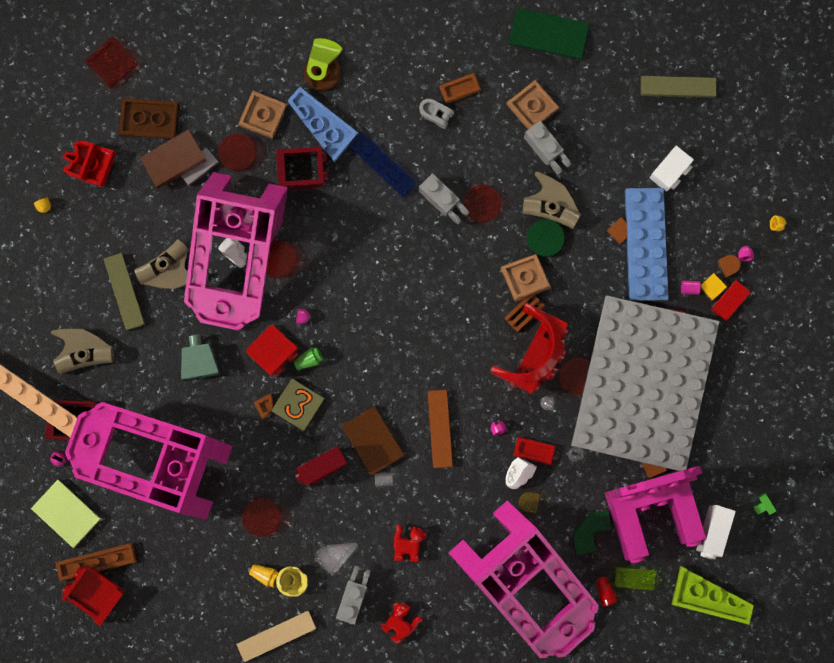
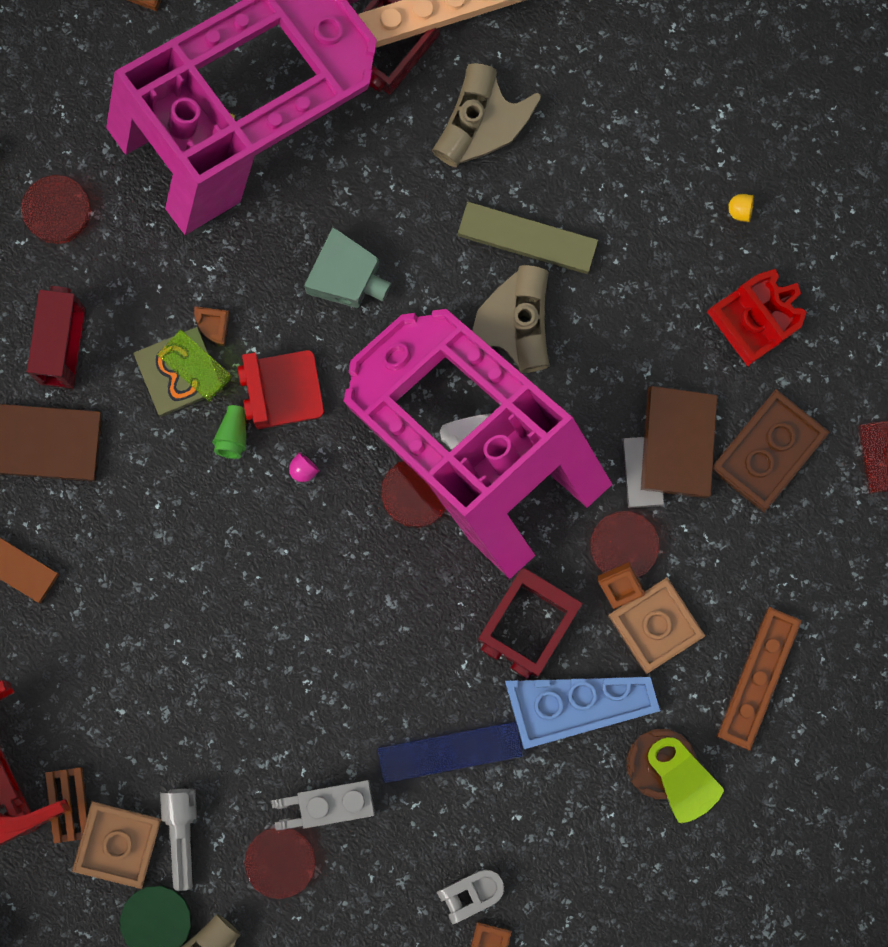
camera: 125 degrees right, 0 degrees up
(255, 56) = (758, 678): none -> dark orange tile
(255, 140) = (621, 585): none -> dark orange tile
(290, 397) = (194, 365): none -> clear neon green tile
(492, 260) = (178, 811): none -> light grey piece

